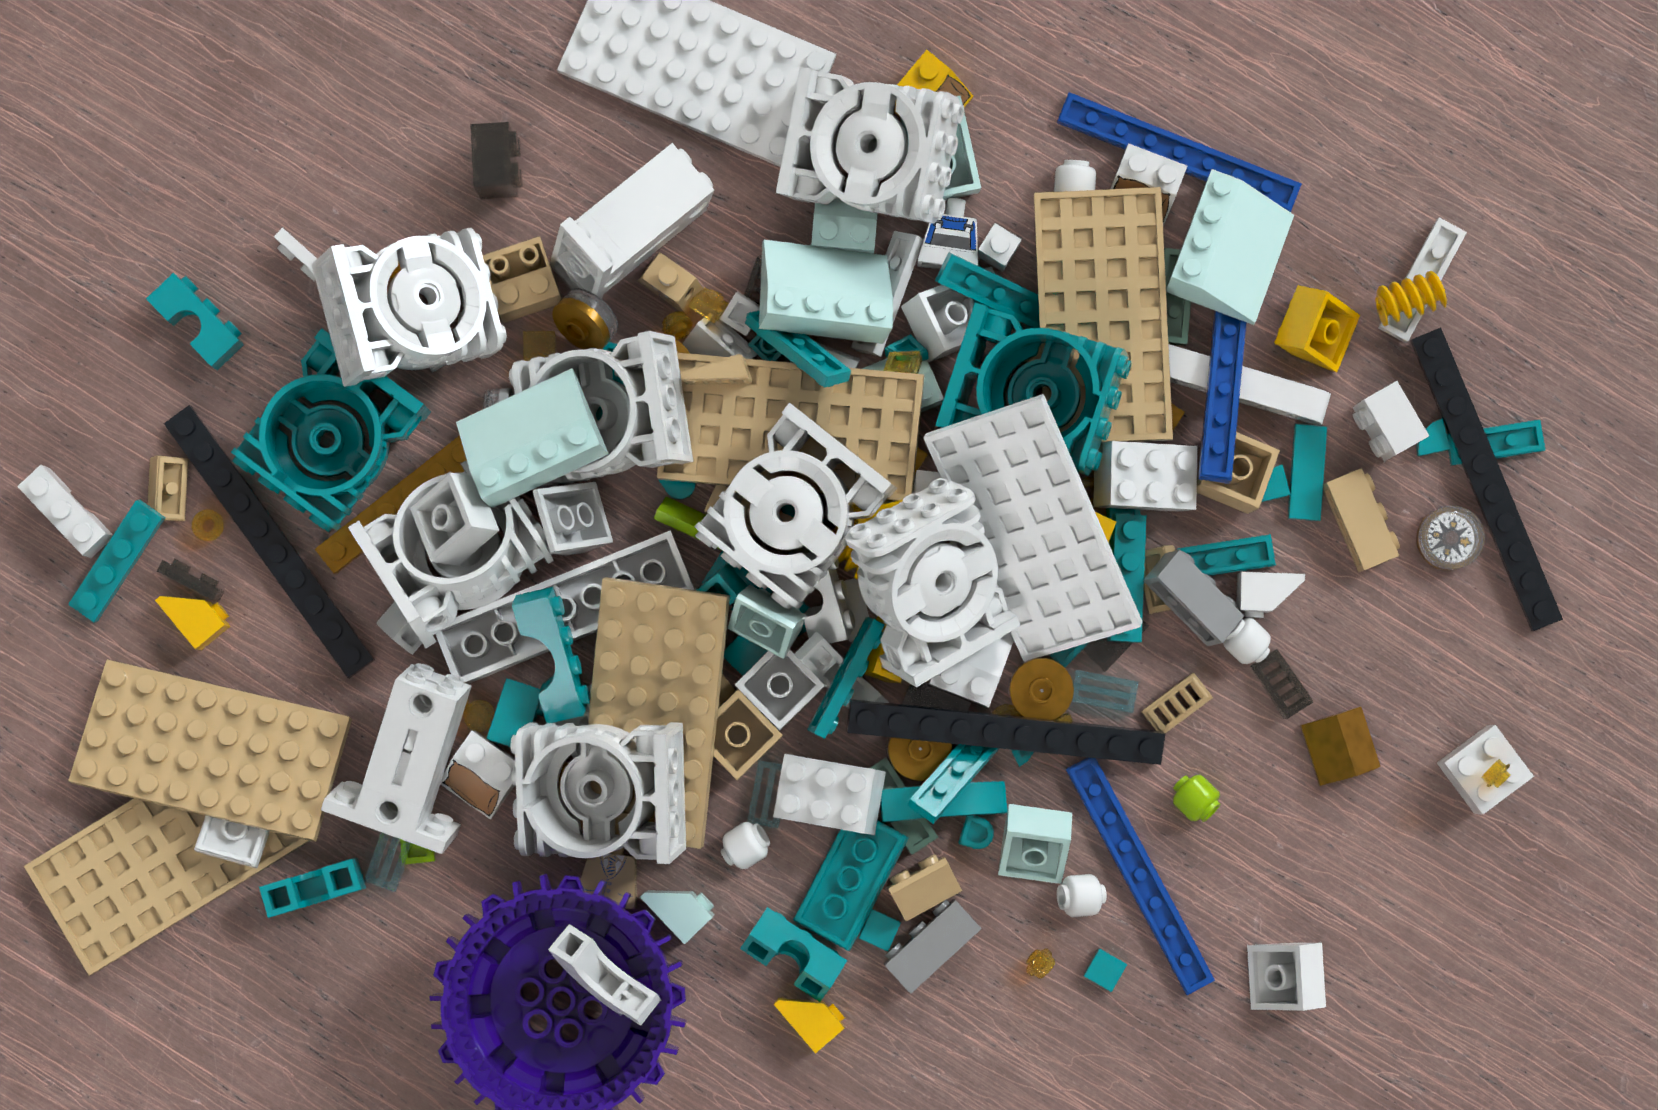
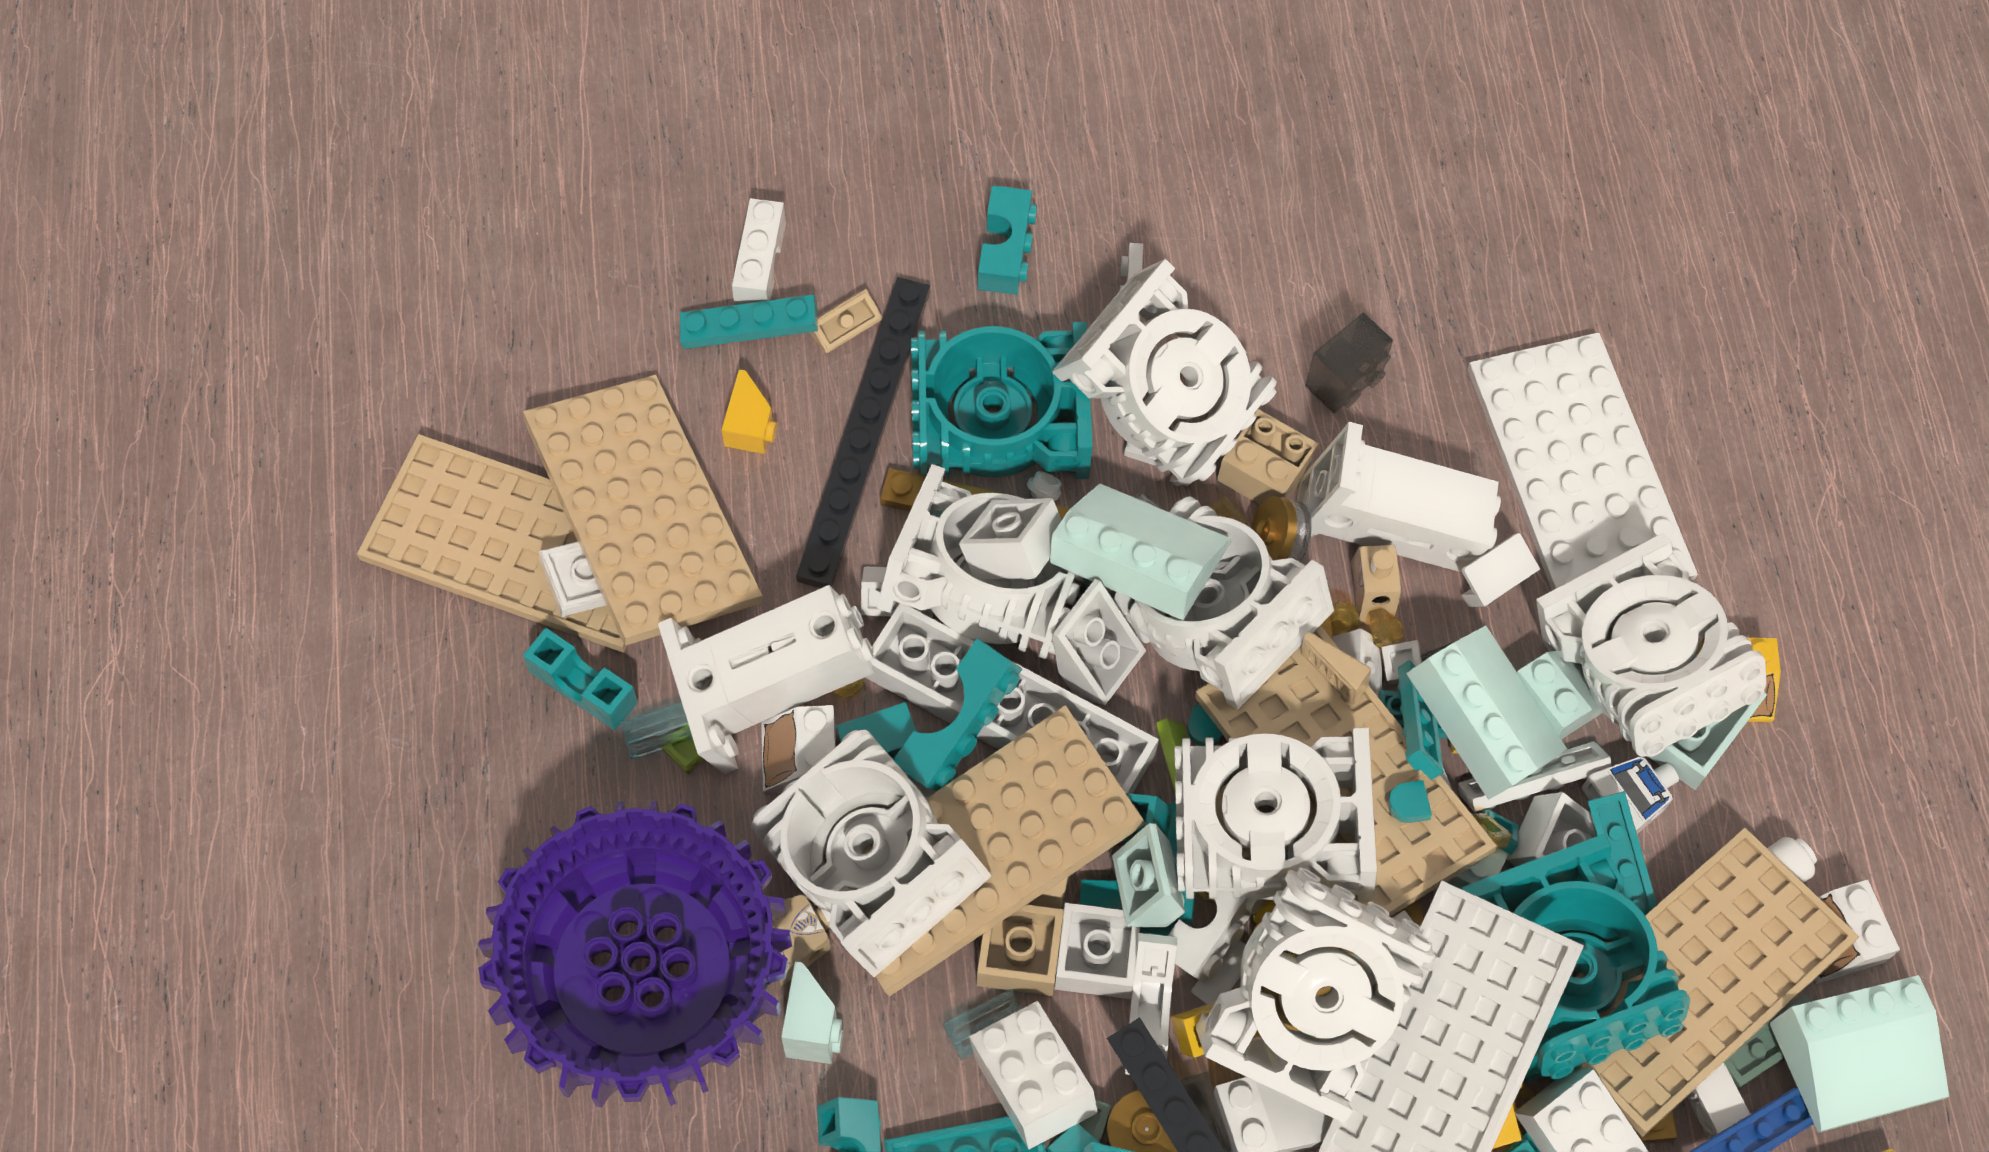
camera: 55 degrees right, 20 degrees down
(180, 573) = (783, 403): clear smoke plate -> none
(198, 522) = (838, 363): clear yellow plate -> none
(416, 450) = (1044, 486): none -> white plate
(479, 715) = (850, 707): clear yellow plate -> none
(601, 977) = (691, 967): white arch -> none
(730, 193) = (1498, 571): none -> white panel
(745, 845) = (920, 1037): white head -> none
(841, 688) = (1139, 1005): teal plate -> none
(850, 406) = (1410, 802): none -> teal tile
(998, 247) = (1666, 841): white brick -> none
(1122, 129) = (1865, 861): blue tile -> none

